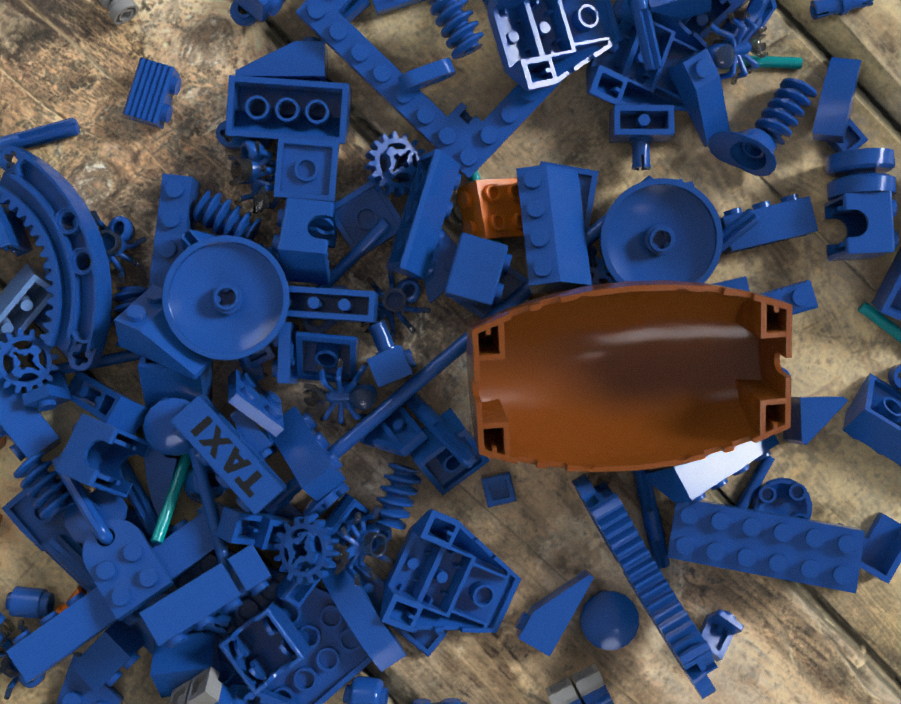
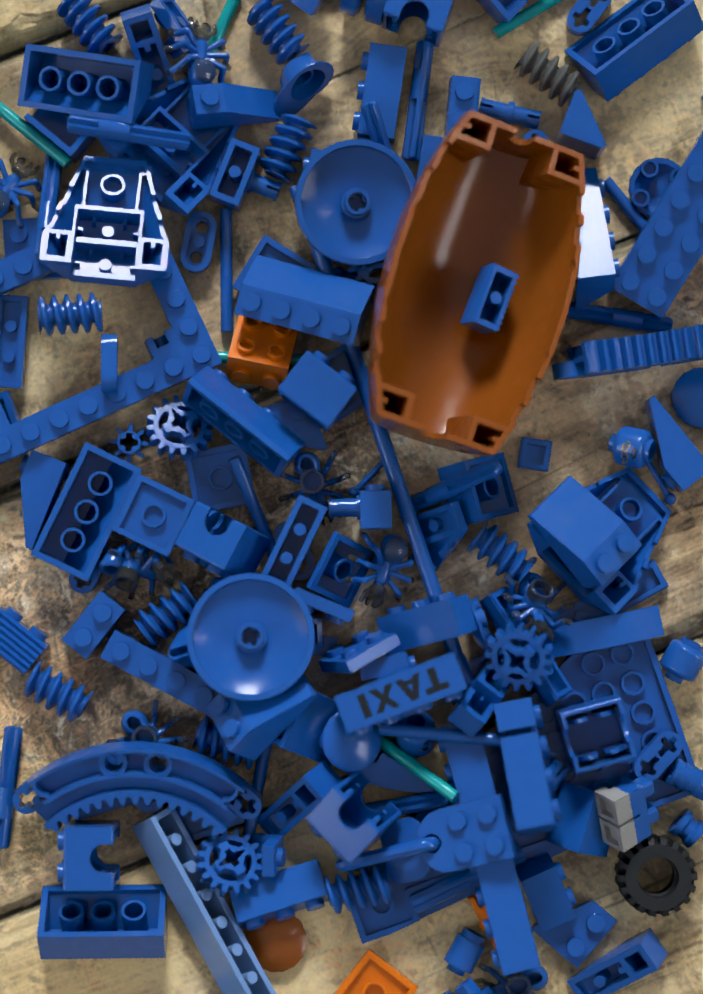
camera: 75 degrees left, 0 degrees up
(119, 149) = (57, 692): none -> blue piece
(192, 159) = (94, 624): none -> blue brick
(358, 128) = (135, 450): none -> blue gear
(400, 340) = (353, 491): none -> blue hinge
(443, 564) = (584, 533): none -> blue slope
(537, 587) = (669, 498): none -> blue hinge
(539, 575) = (632, 447): none -> blue head
(554, 151) = (226, 270): none -> blue bar
(566, 114) = (198, 242): none -> blue plate
(621, 393) = (489, 299): none -> blue brick
(684, 158) = (286, 146): none -> blue piece
(773, 260) = (418, 100): none -> blue axle
(797, 364) = (510, 113): none -> blue pin
(846, 366) = (548, 73): none -> dark grey piece

